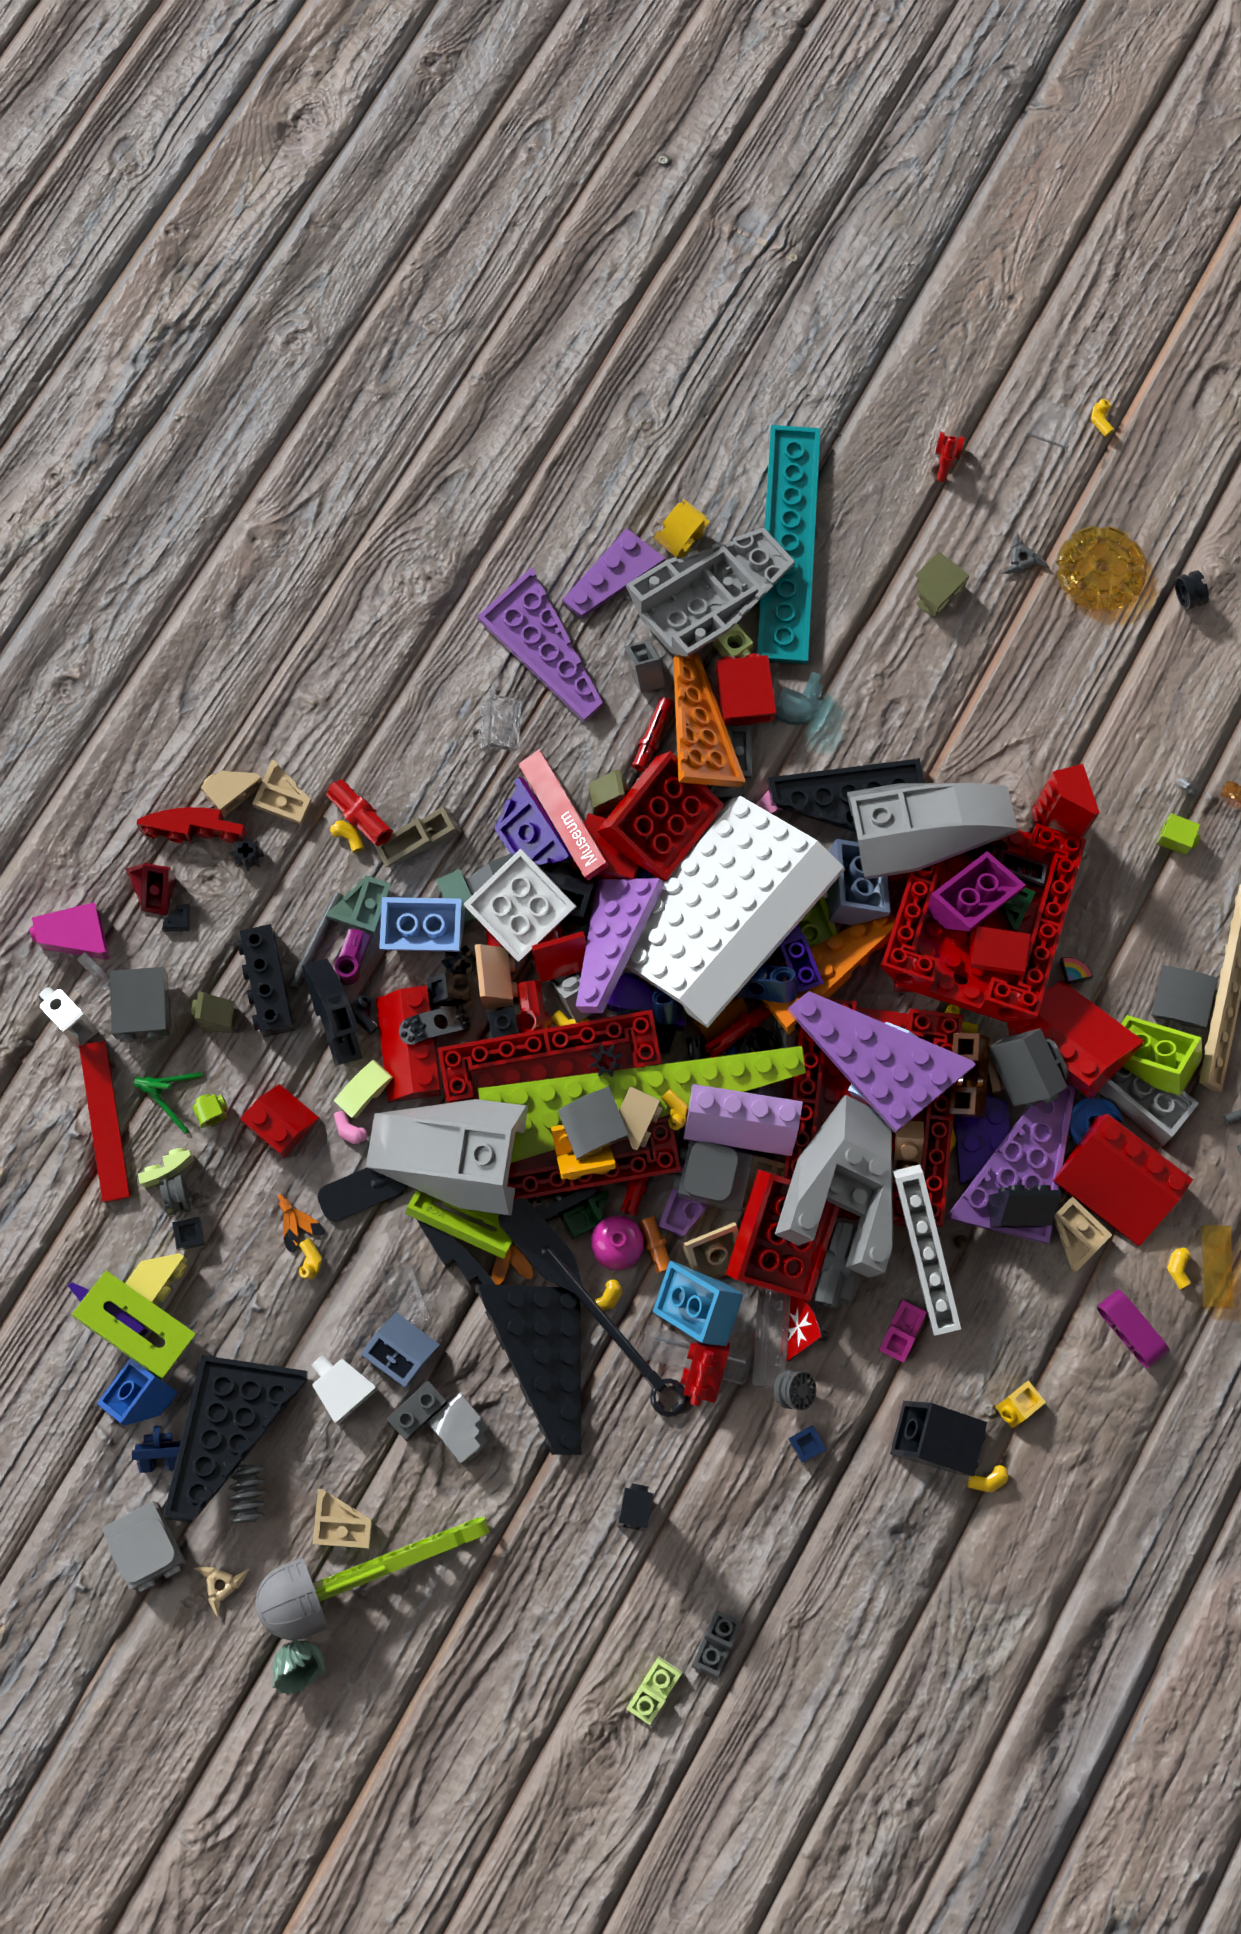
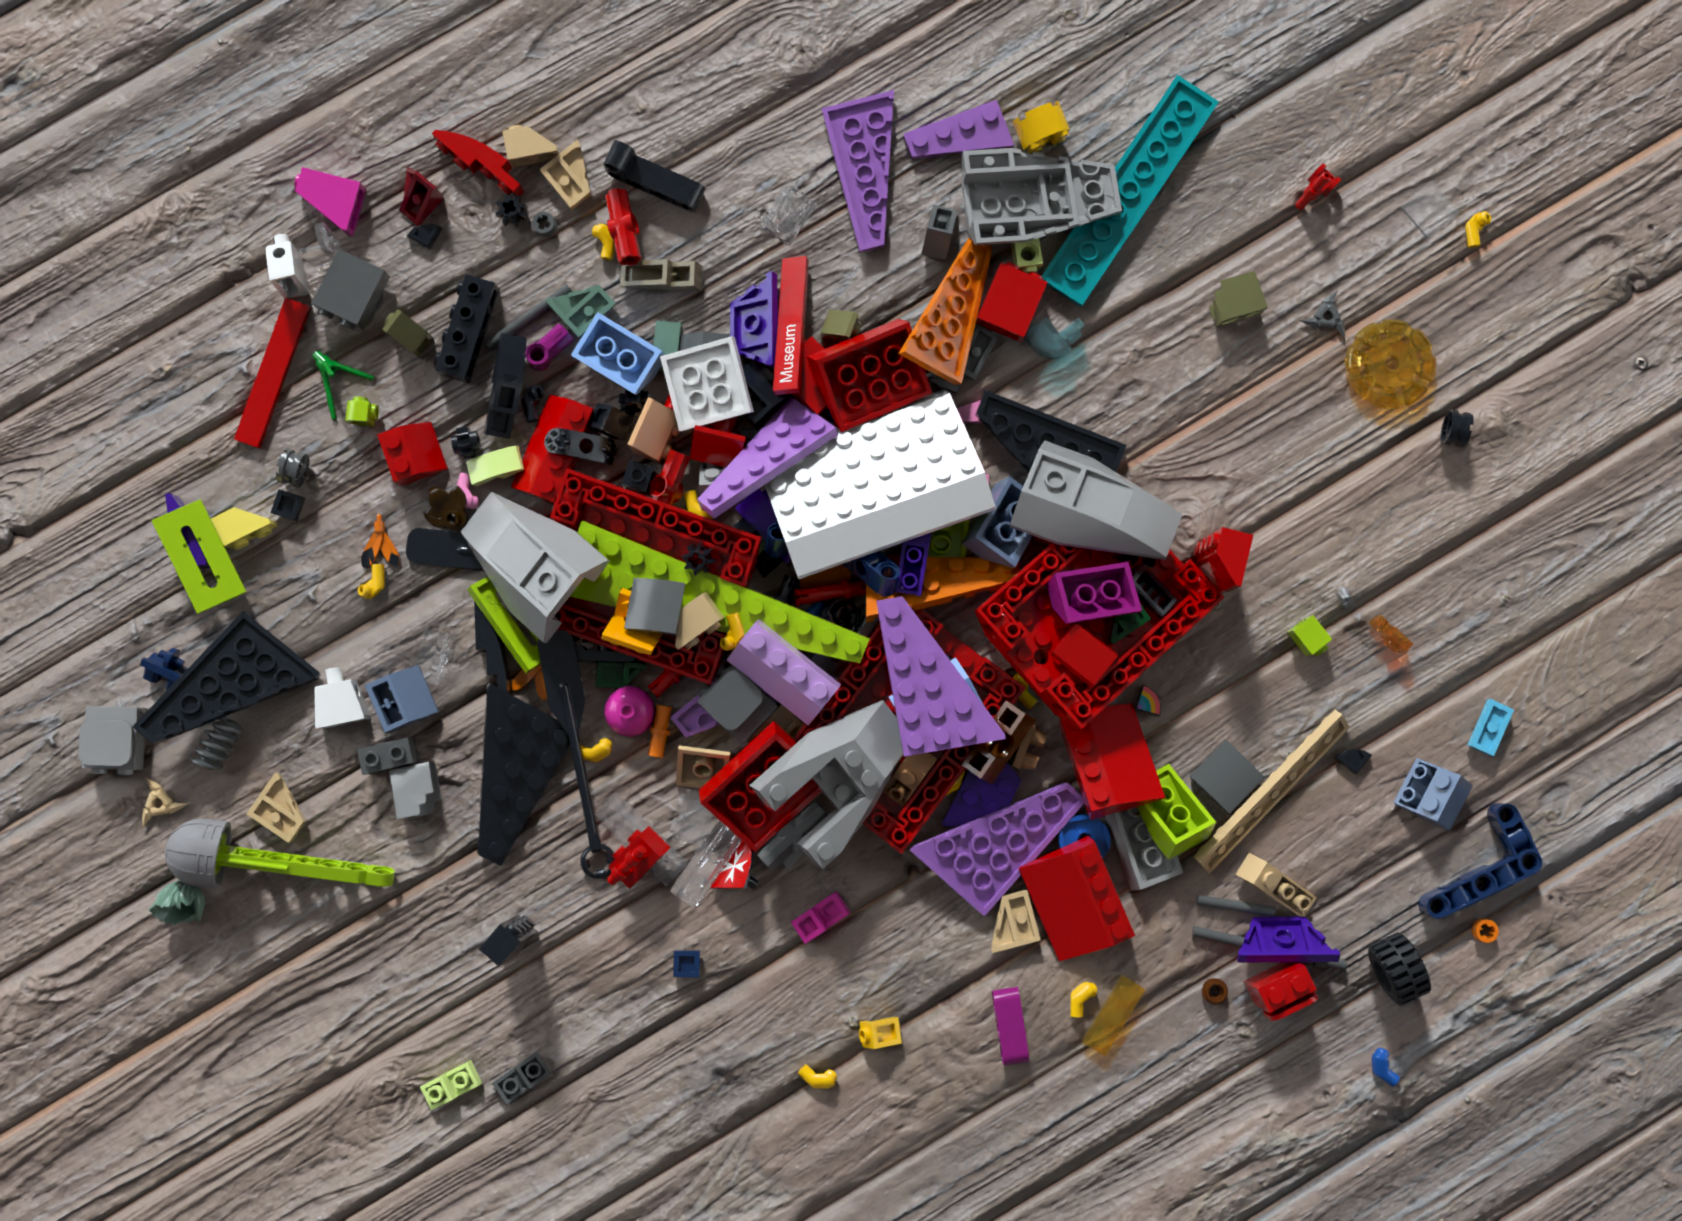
camera: 30 degrees right, 10 degrees up
(136, 1395) = (172, 616): blue slope -> none
(173, 1164) = (304, 440): yellowish green slope -> none
(290, 855) = (547, 231): none -> dark grey bush
(324, 1082) = (465, 442): none -> black gear
(336, 1152) = (444, 505): none -> dark brown plate
(360, 756) = (652, 178): none -> black beam
(649, 744) = (903, 303): red pin -> none
(698, 1304) = (661, 802): dark azure slope -> none
(792, 1389) = (699, 914): dark grey wheel -> none
(927, 1250) = (874, 866): white brick -> none
(939, 1437) = (795, 1022): black slope -> none
(1023, 1206) = (974, 878): black slope -> none
(1029, 1067) = (1053, 765): dark grey brick -> none

